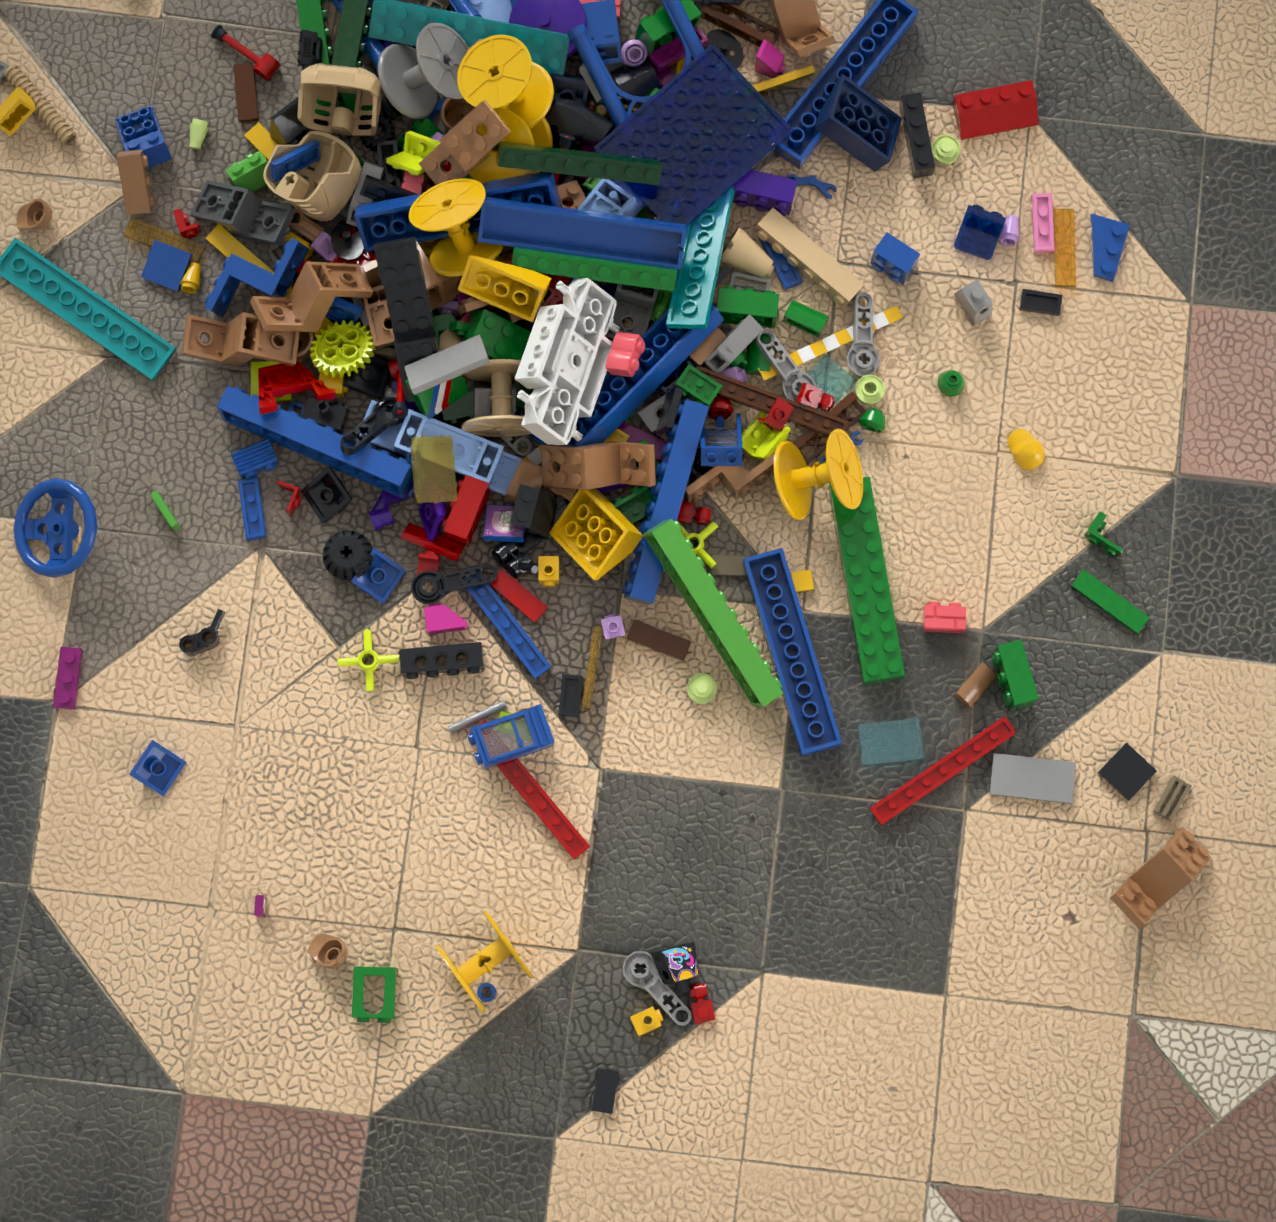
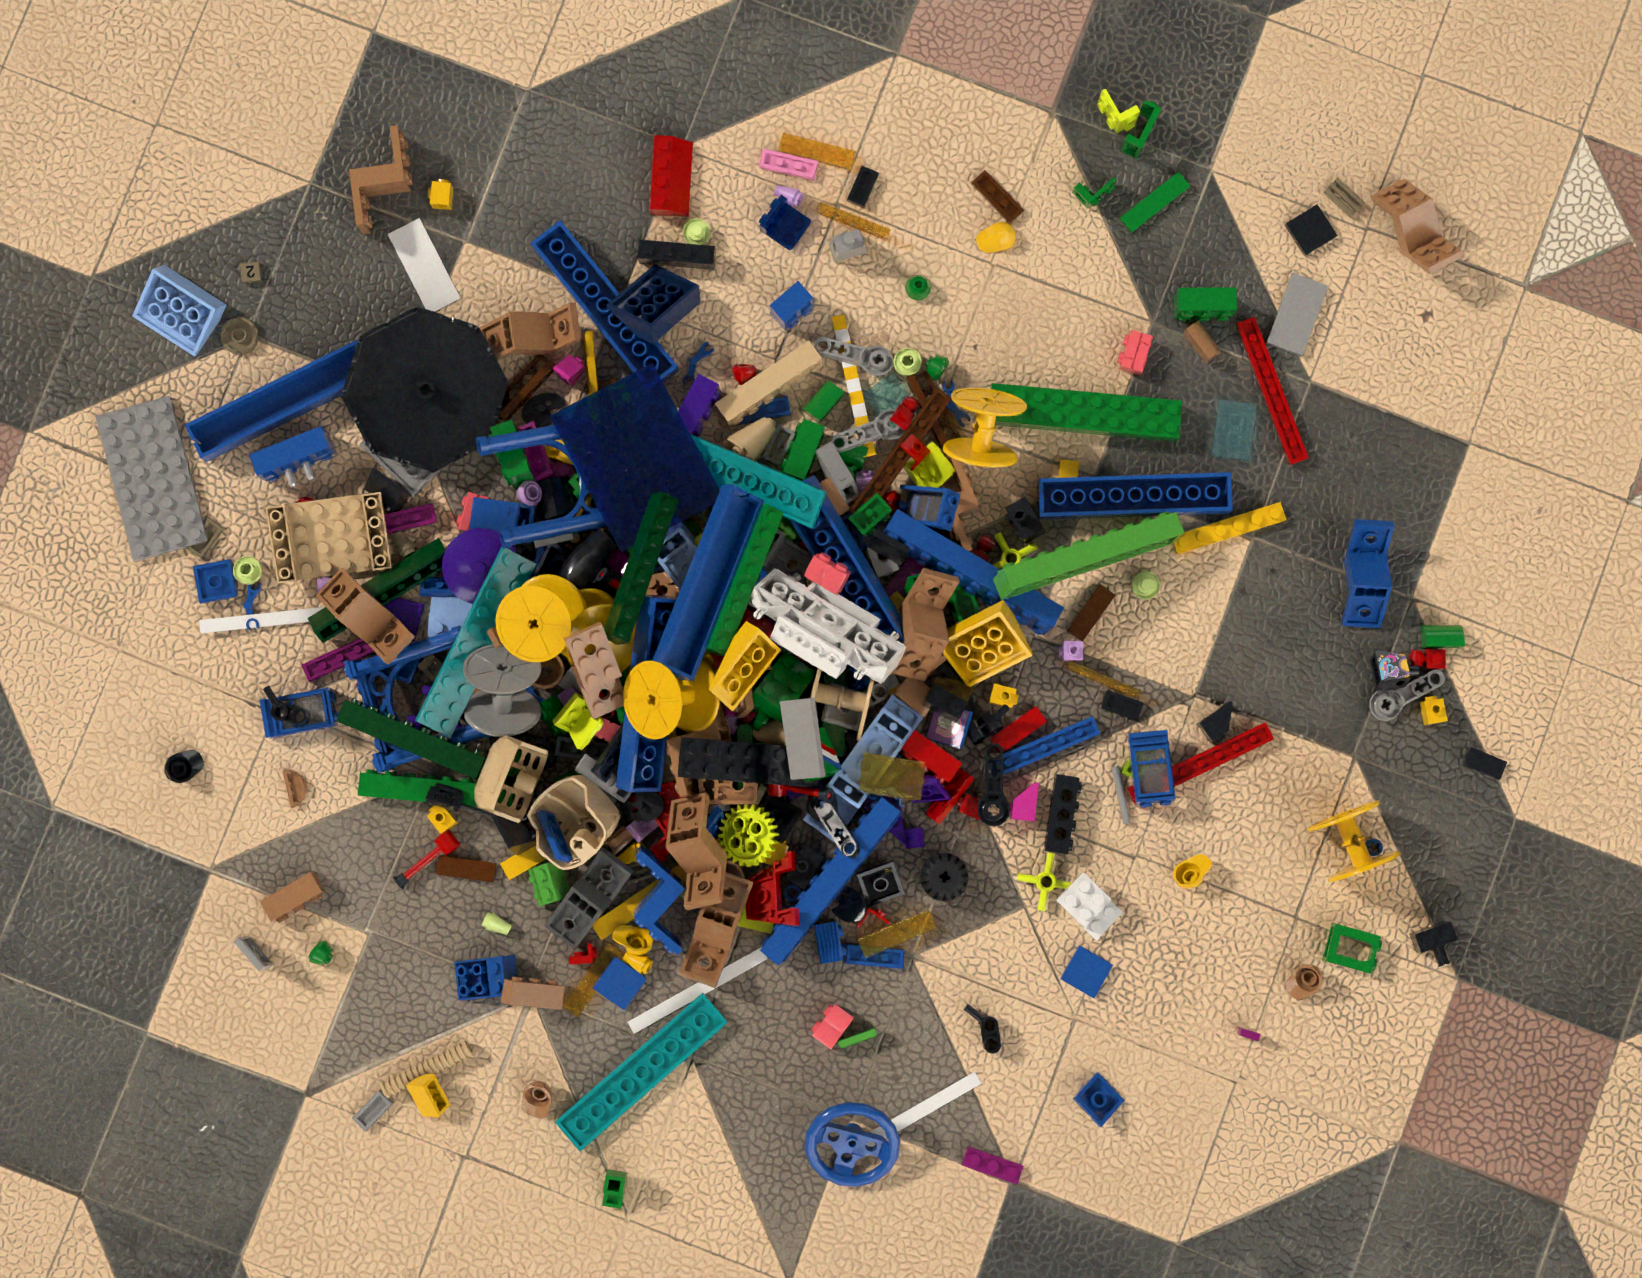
camera: 75 degrees left, 5 degrees up
(114, 601) = (929, 1105): none -> white sticker
(171, 482) = (832, 1026): none -> coral brick
(174, 339) = (691, 993): none -> white sticker
(211, 265) = (635, 939): none -> yellow piece
(279, 524) = (896, 934): none -> clear yellow tile
(286, 725) = (1086, 971): none -> blue tile
(288, 56) = (441, 818): none -> yellow brick
(294, 471) = (852, 908): none -> black piece
(353, 709) = (1089, 906): none -> white bracket
(380, 578) = (970, 851): blue slope -> none
(404, 1078) = (1435, 939): none -> black brick
(414, 805) = (1192, 871): none -> yellow piece
(576, 796) = (1217, 723): none -> black slope
(729, 1012) = (1442, 636): none -> green brick
(738, 545) = (1025, 520): none -> black brick
(773, 912) = (1367, 573): none -> blue bracket
(785, 761) = (1229, 528): none -> yellow plate
(814, 230) = (743, 372): none -> red cone
(1001, 300) = (853, 221): none -> clear yellow tile
(1069, 439) = (997, 197): none -> reddish brown tile
(1107, 242) = (825, 112): blue wing -> none
(1181, 571) = (1132, 146): none -> green panel
(1186, 545) = (1116, 120): none -> neon yellow bracket

